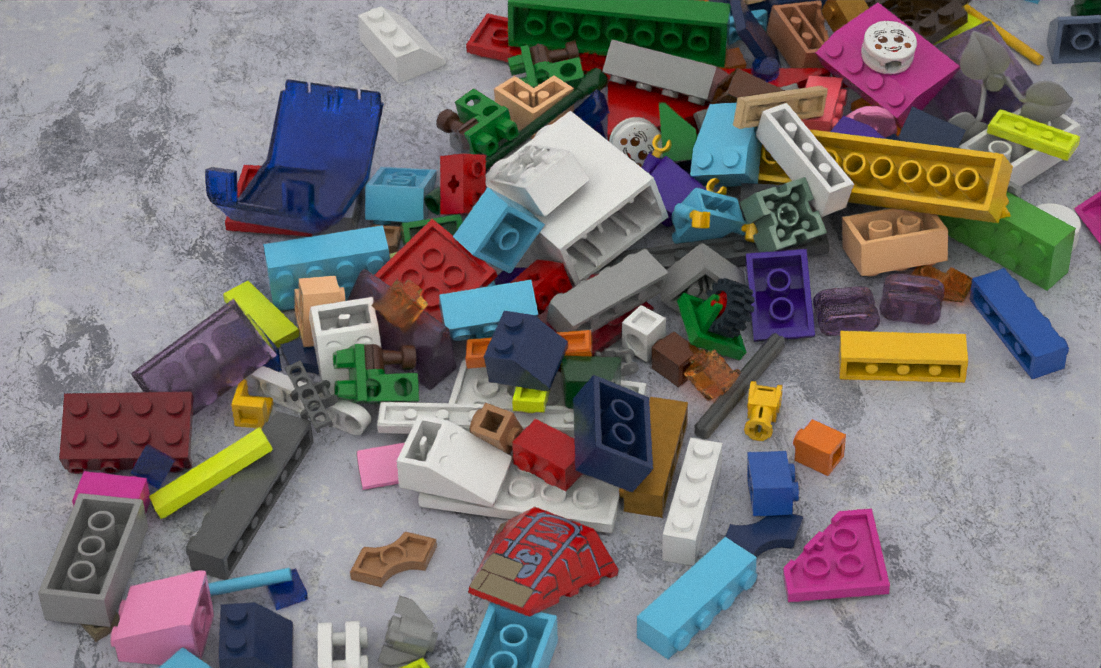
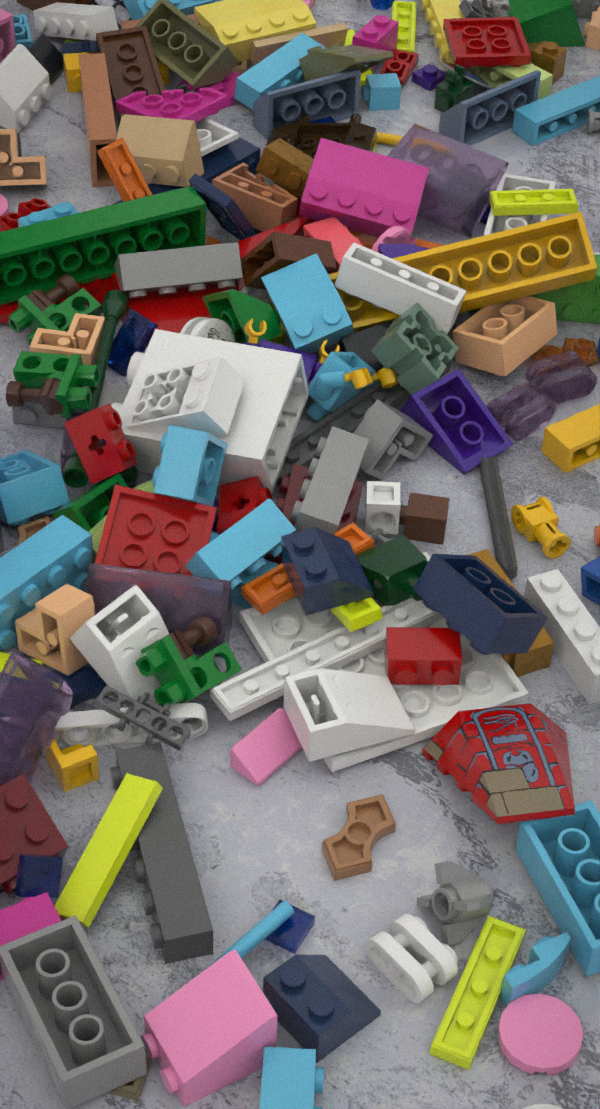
camera: 40 degrees left, 0 degrees up
(401, 304) = (173, 589): clear orange brick -> none
(496, 427) = (360, 652): medium nougat brick -> none
(710, 374) = (471, 509): clear orange brick -> none
(719, 319) = (441, 459): plate -> none
(765, 68) = (255, 233): clear blue tile -> none
(804, 102) = (332, 252): tan tile -> none
(888, 47) = (370, 170): white head -> none
(930, 130) = (450, 227): dark blue brick -> none
(987, 61) = (477, 142): light grey plant -> none

